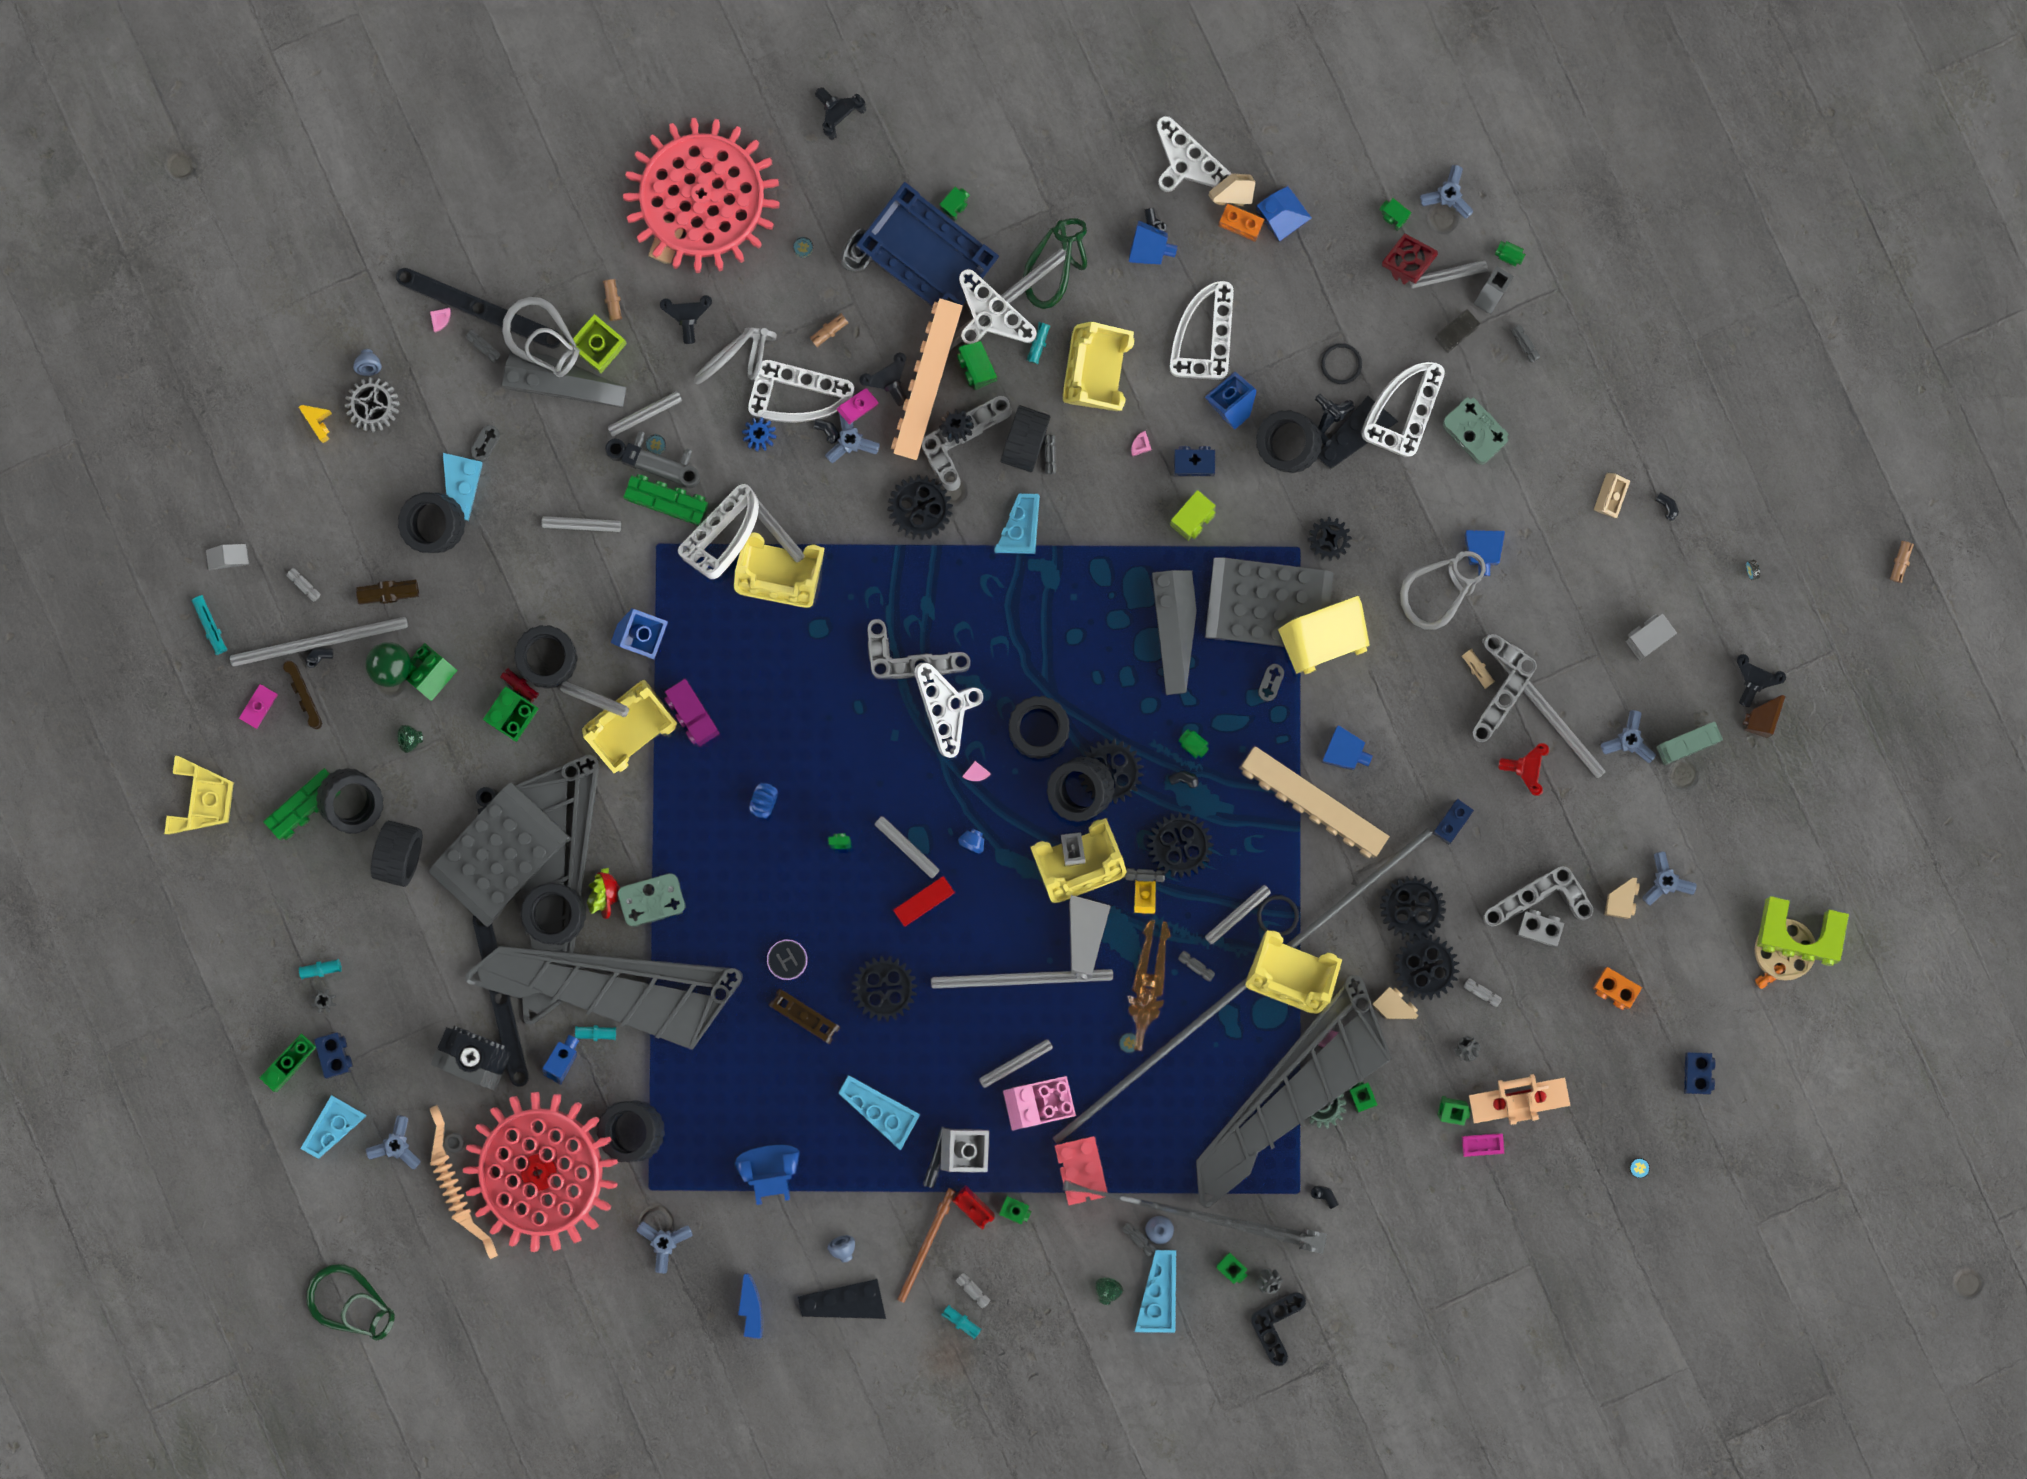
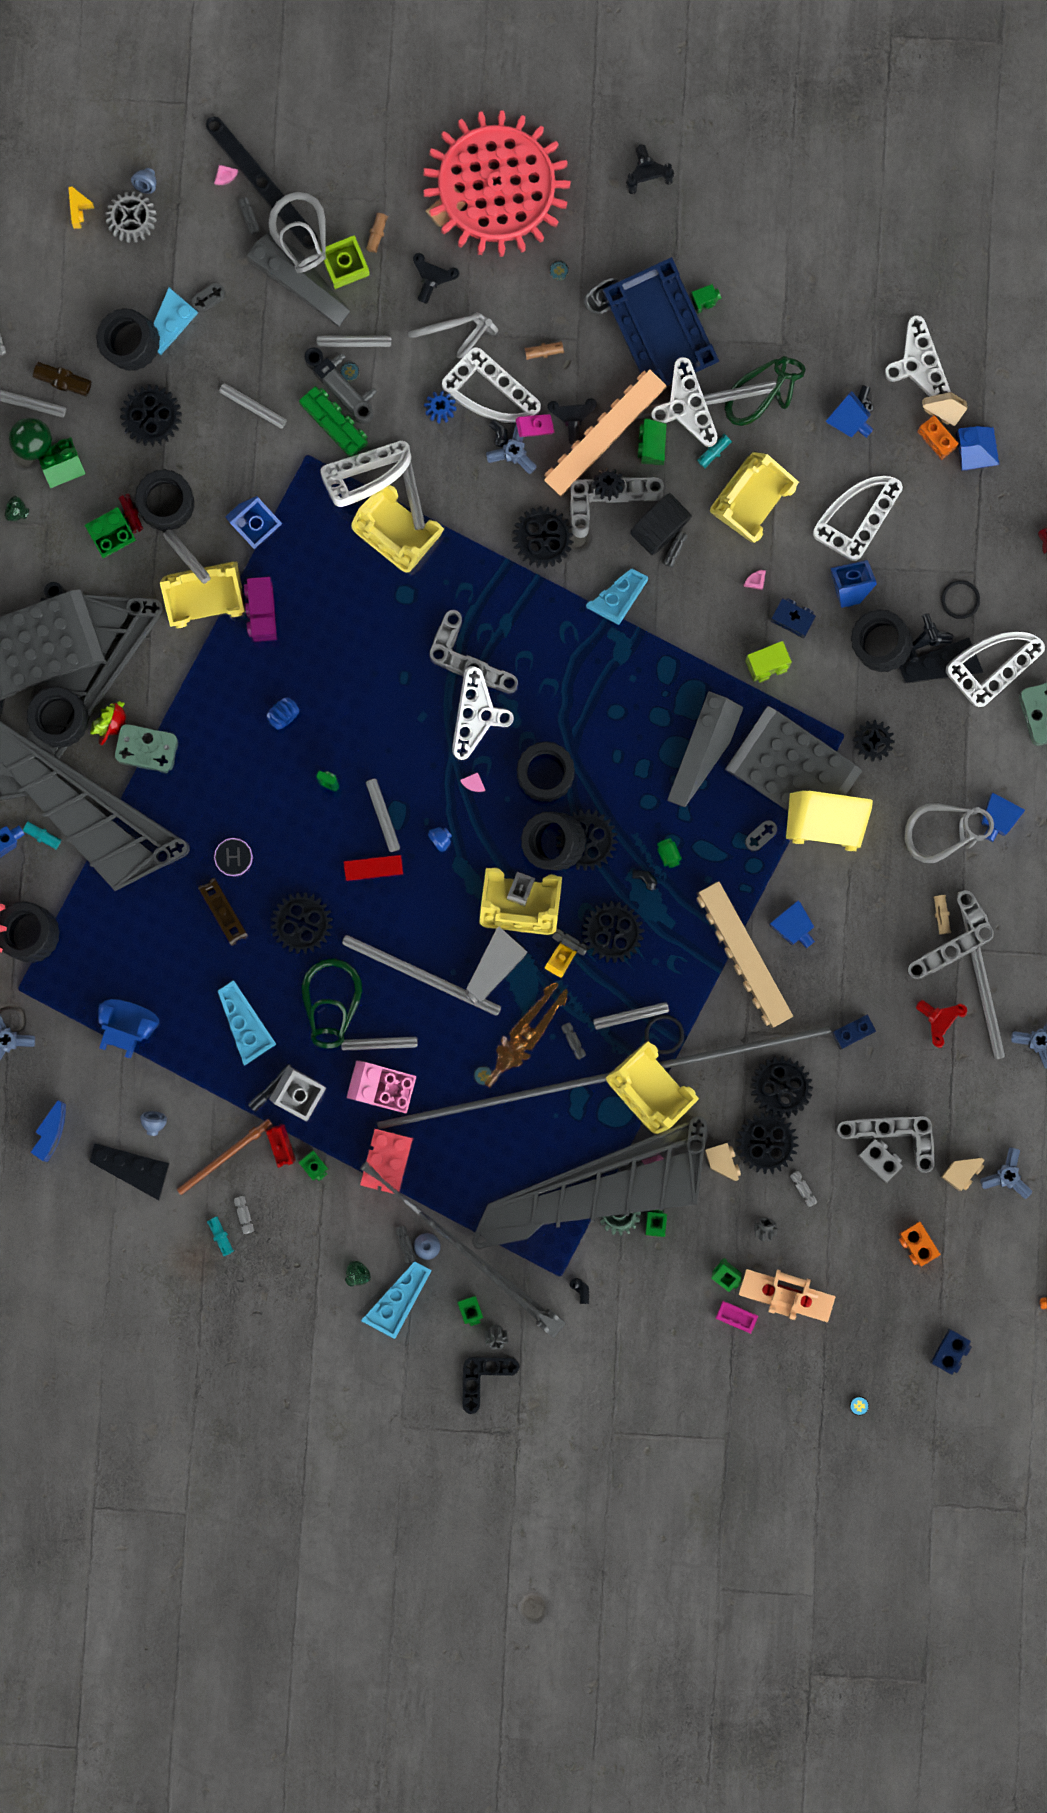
camera: 25 degrees right, 0 degrees up
(508, 587) = (138, 405): none -> black gear
(936, 1067) = (310, 1009): none -> dark green animal

